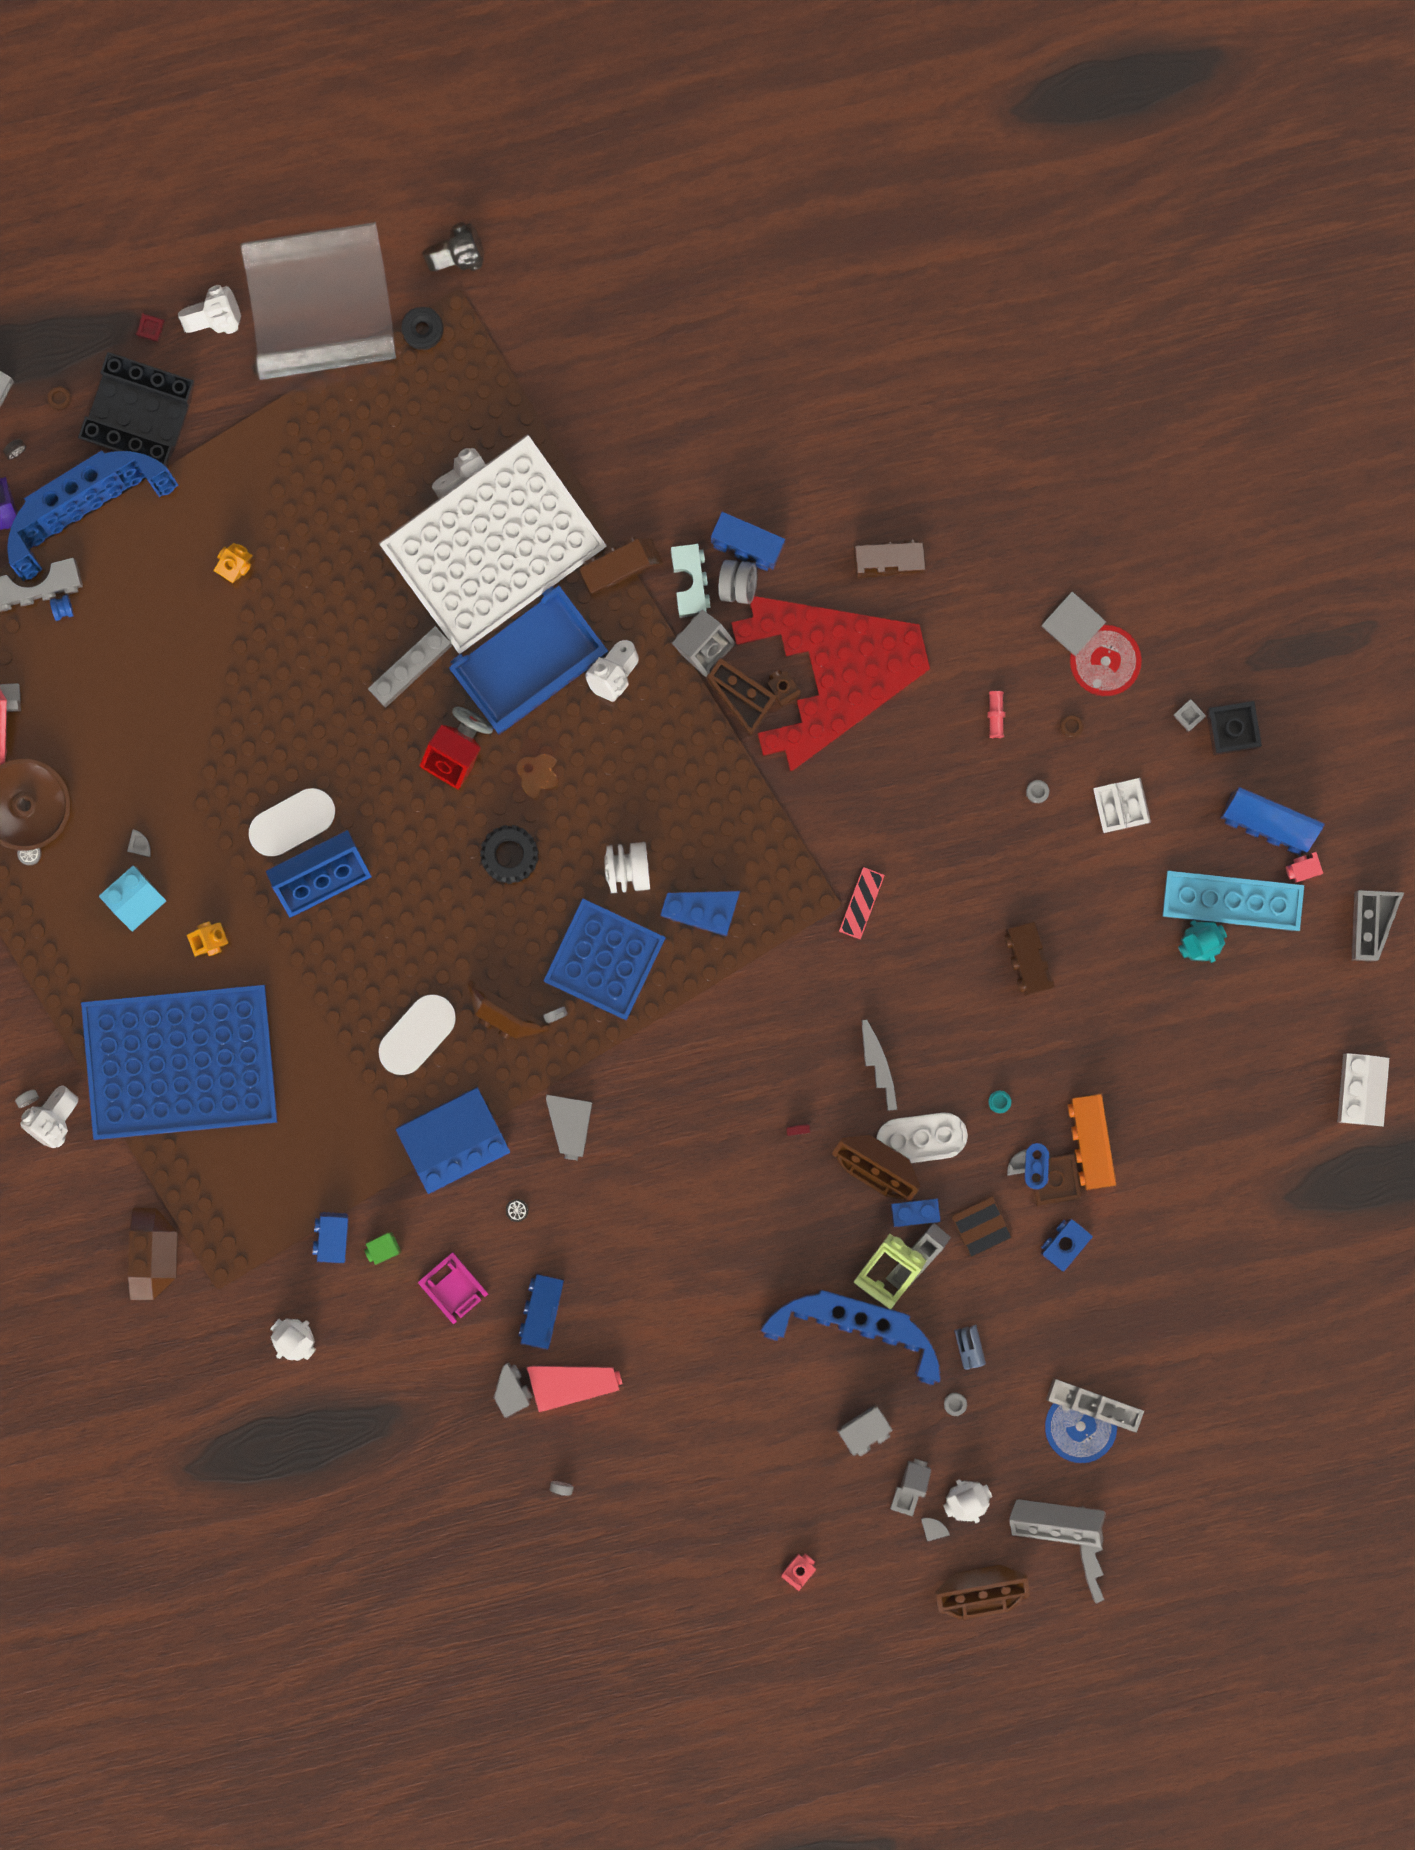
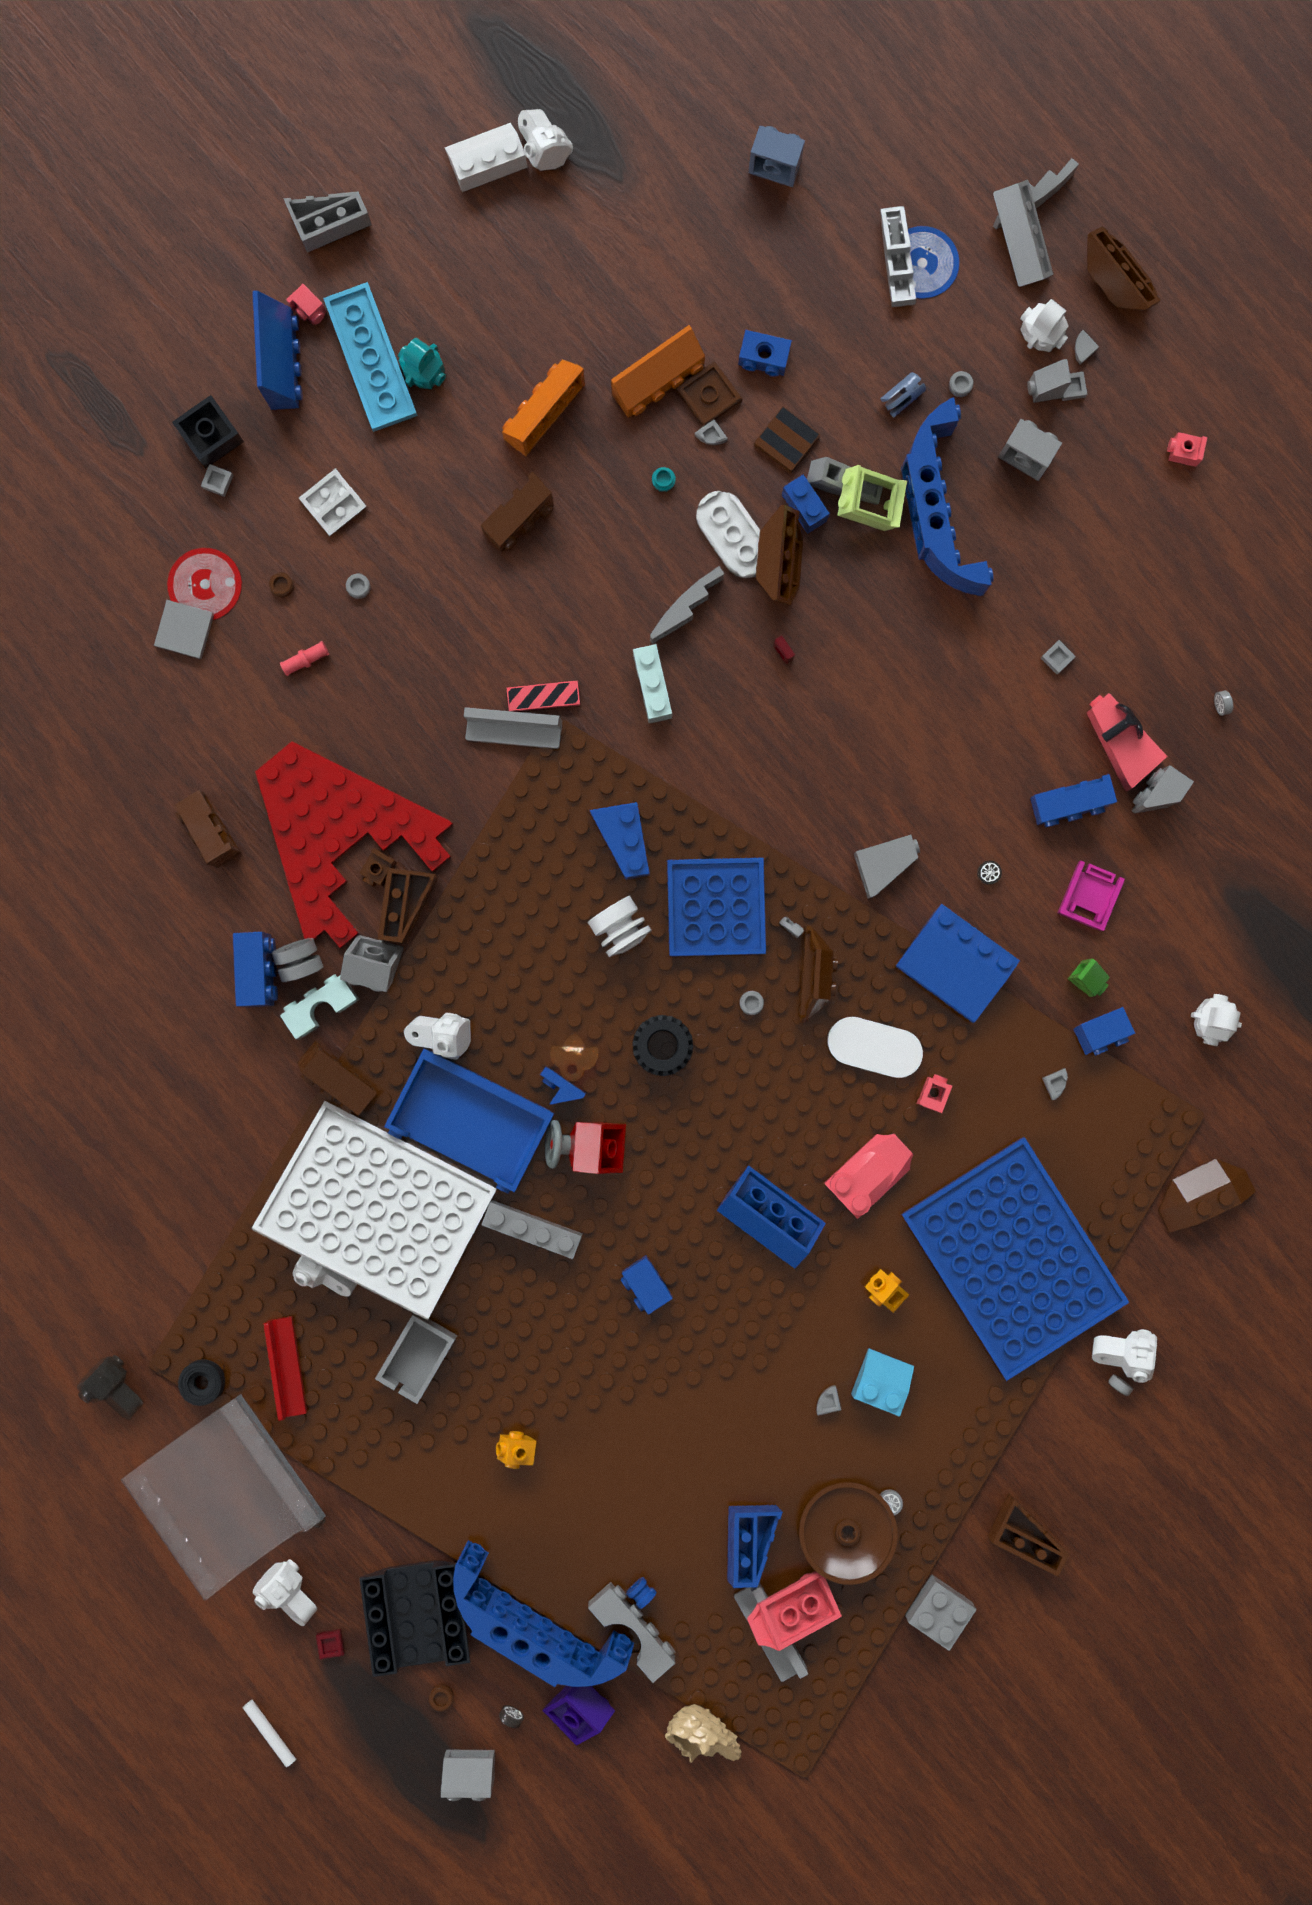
camera: 115 degrees left, 0 degrees up
(58, 718) = (749, 1539): none -> blue wedge
(103, 241) = (269, 1733): none -> white piece
(292, 822) = (735, 1266): white tile -> none
(308, 1174) = (1056, 1083): none -> light grey tile
(312, 976) = (870, 1173): none -> coral slope
(314, 740) = (646, 1285): none -> blue brick
(344, 1060) = (935, 1103): none -> coral brick
(352, 517) = (416, 1357): none -> light grey piece
(399, 404) = (285, 1367): none -> red panel
(507, 948) = (751, 1002): none -> light grey tile
(512, 755) = (567, 1090): none -> blue slope
(584, 1391) = (1129, 720): none -> black plant
(673, 1366) = (1058, 657): none -> light grey tile
(824, 1001) = (652, 683): none -> light aqua arch
(845, 863) = (513, 728): none -> light grey panel
(1037, 1166) = (705, 413): blue plate -> none
(1113, 1029) = (544, 406): none -> orange slope
(1234, 1341) = (776, 155): none -> sand blue brick
(1344, 1146) = (546, 143): none -> white piece

